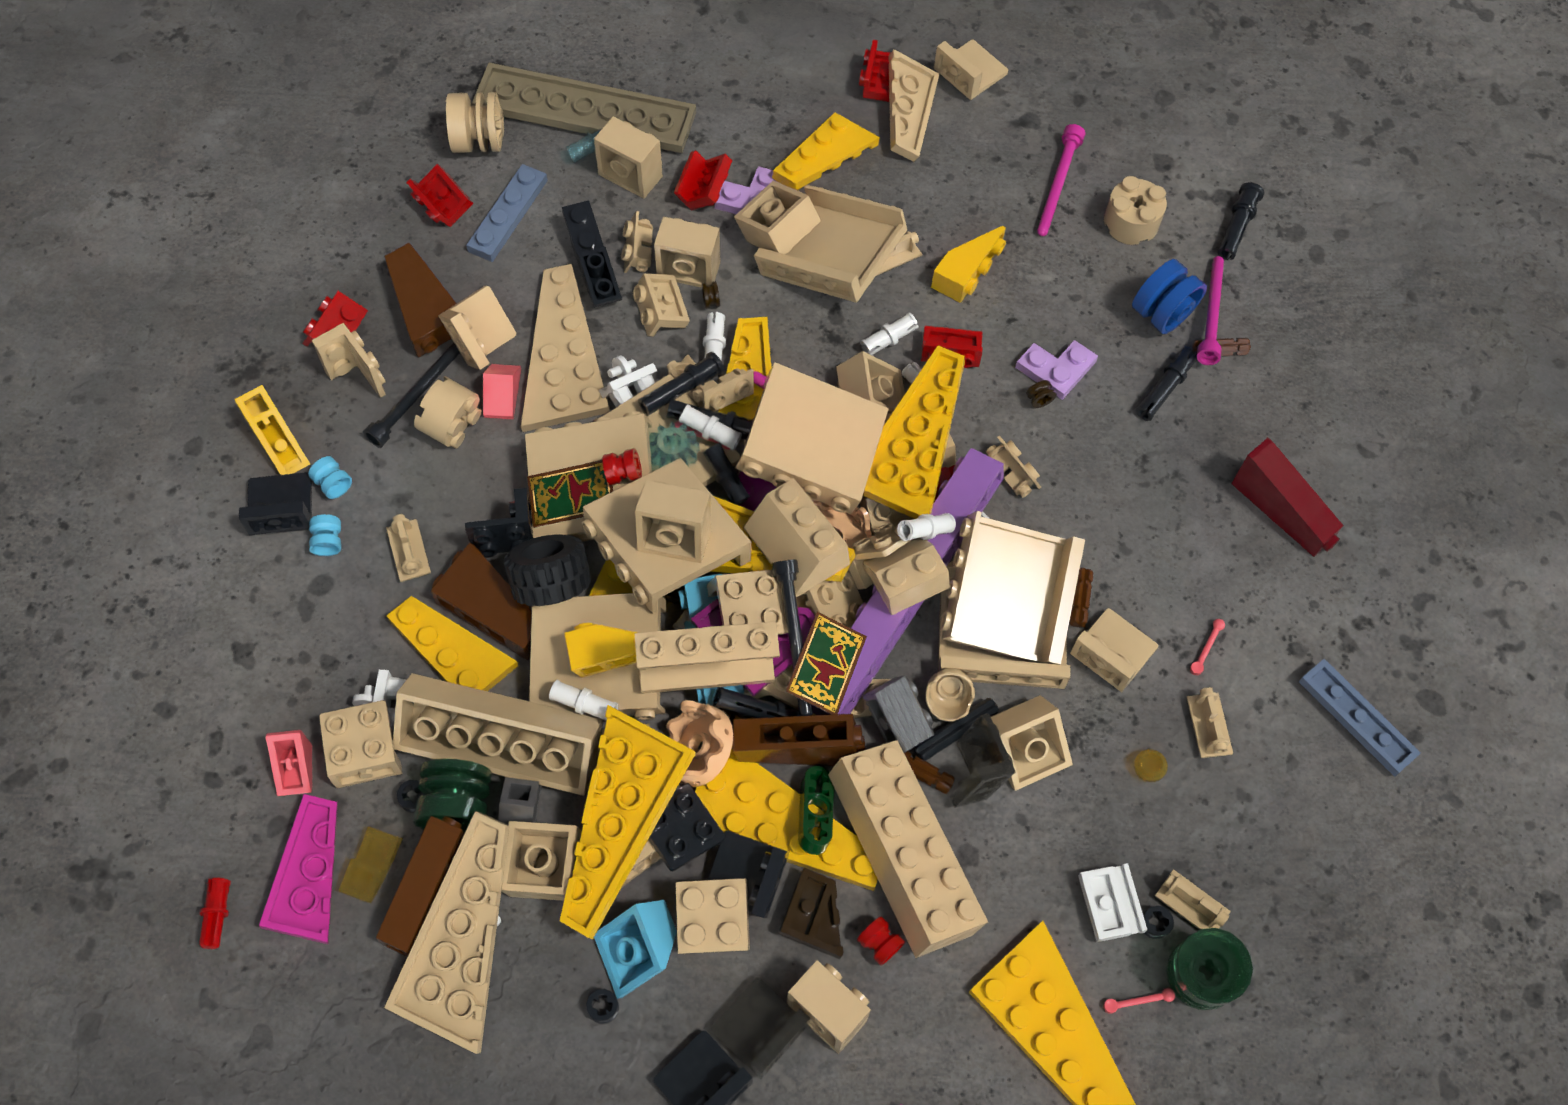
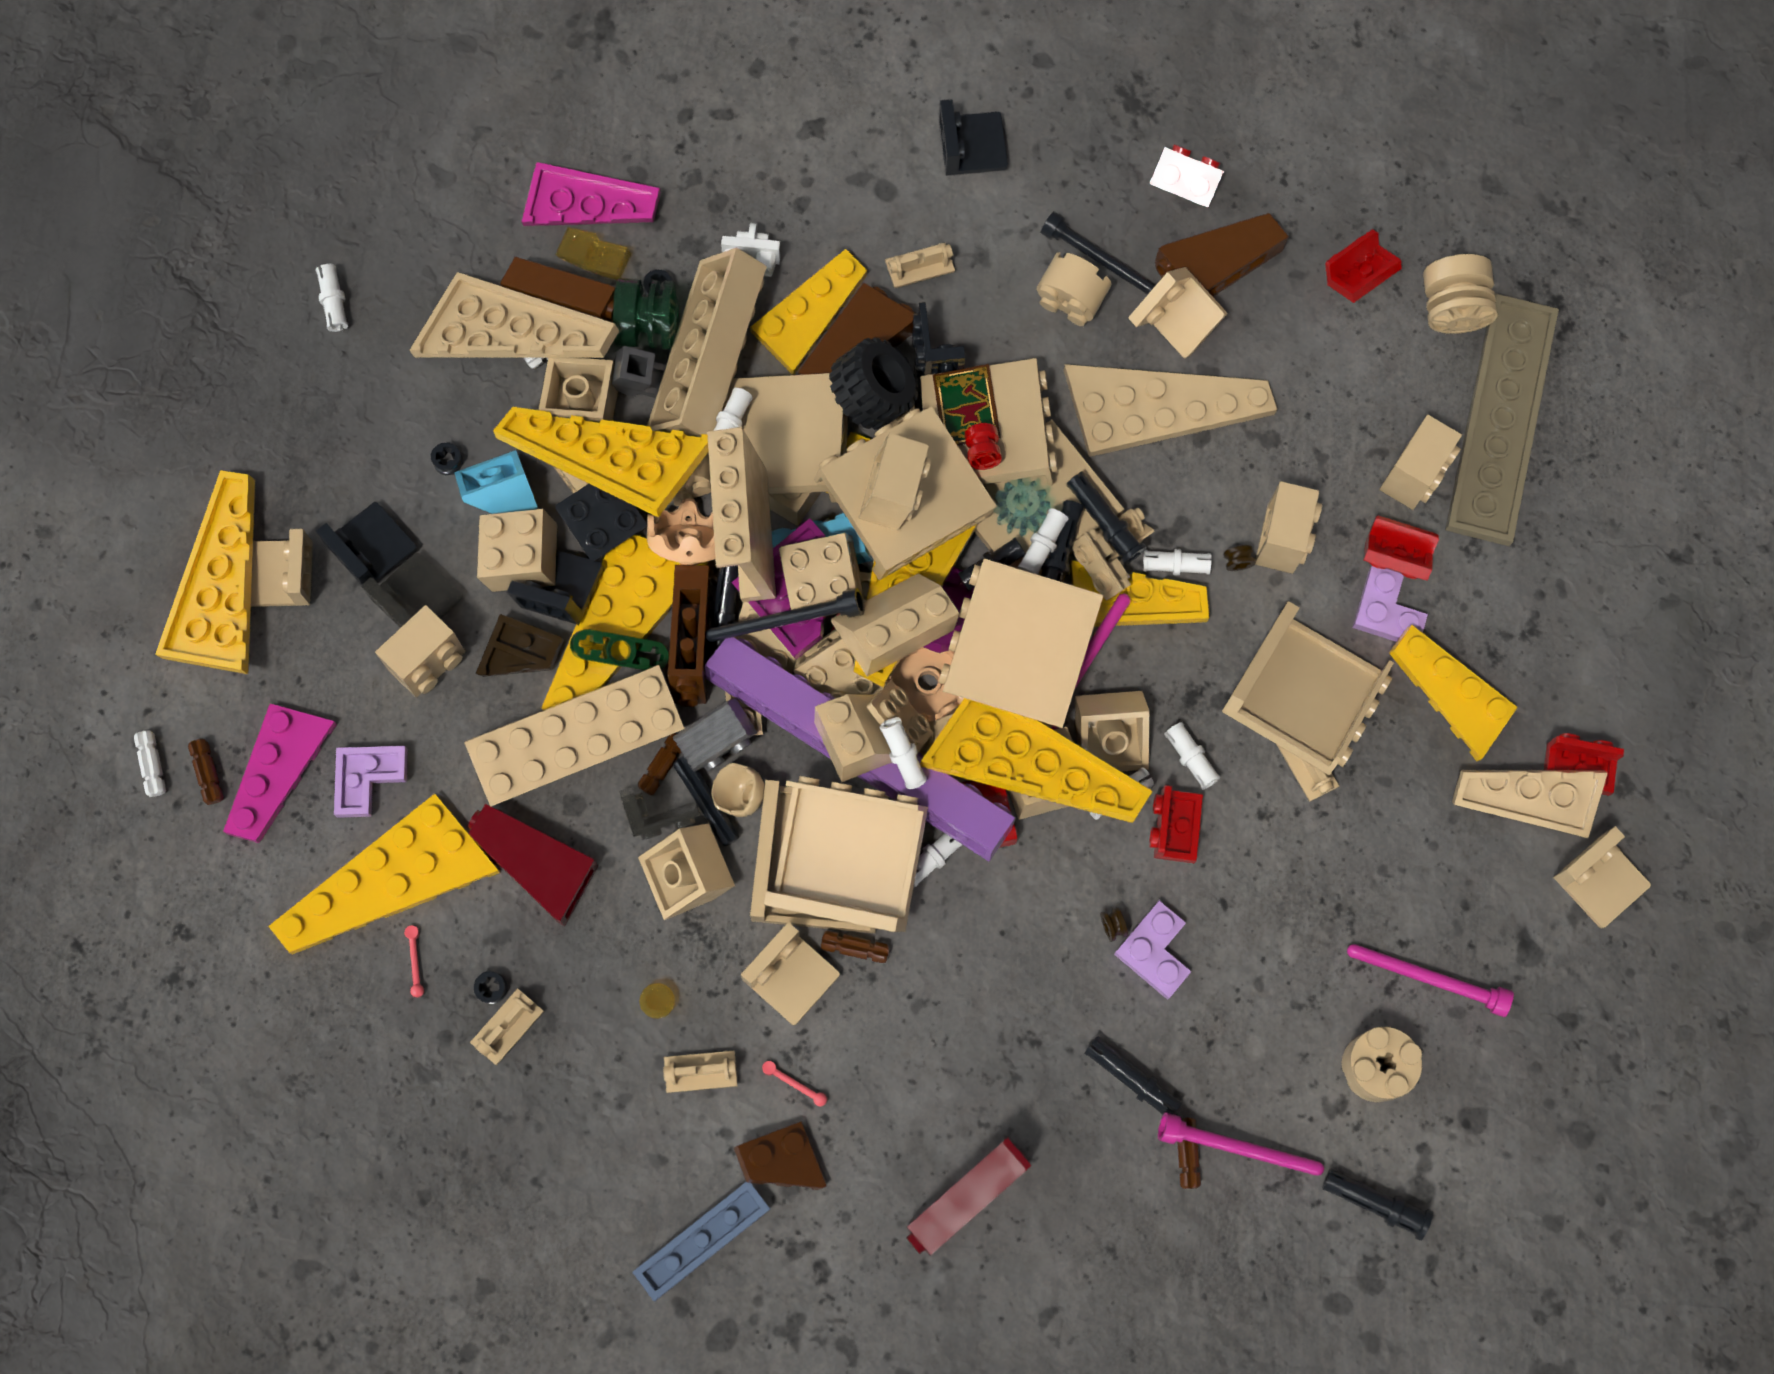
camera: 90 degrees right, 10 degrees up
(214, 912) = (553, 127): red axle -> none
(272, 431) = (1054, 125): yellow slope -> none
(290, 762) = (692, 176): coral slope -> none
(325, 535) = (941, 185): medium azure wheel -> none
(328, 475) = (1001, 184): medium azure wheel -> none
(342, 350) = (1143, 185): tan bracket -> none
(359, 744) = (705, 228): tan bracket -> none
(500, 391) = (1112, 343): coral slope -> none
(507, 213) = (1348, 342): sand blue plate -> none
(582, 147) = (1438, 410): clear light blue axle -> none
(591, 254) = (1286, 430): black slope -> none
(599, 648) = (779, 438): yellow slope -> none
(618, 389) = (1108, 457): white hips -> none
(633, 253) = (1322, 479): tan hinge -> none
(660, 303) = (1227, 504): tan bracket -> none
(777, 218) = (1337, 626): tan brick -> none
(826, 664) = (758, 651): sticker -> none
(877, 937) = (487, 709): red wheel -> none
(951, 1072) = (360, 768): none -> lavender plate
(964, 264) = (1290, 846): yellow slope -> none
(1021, 476) = (1032, 879): tan hinge -> none
(1035, 878) = (538, 863): none -> dark red slope
(1112, 902) = (511, 941): white plate -> none
(1169, 296) = (1245, 1085): blue wheel -> none
(1221, 955) = (421, 1007): clear green wheel -> none
(1278, 652) = (781, 1159): none -> reddish brown wing

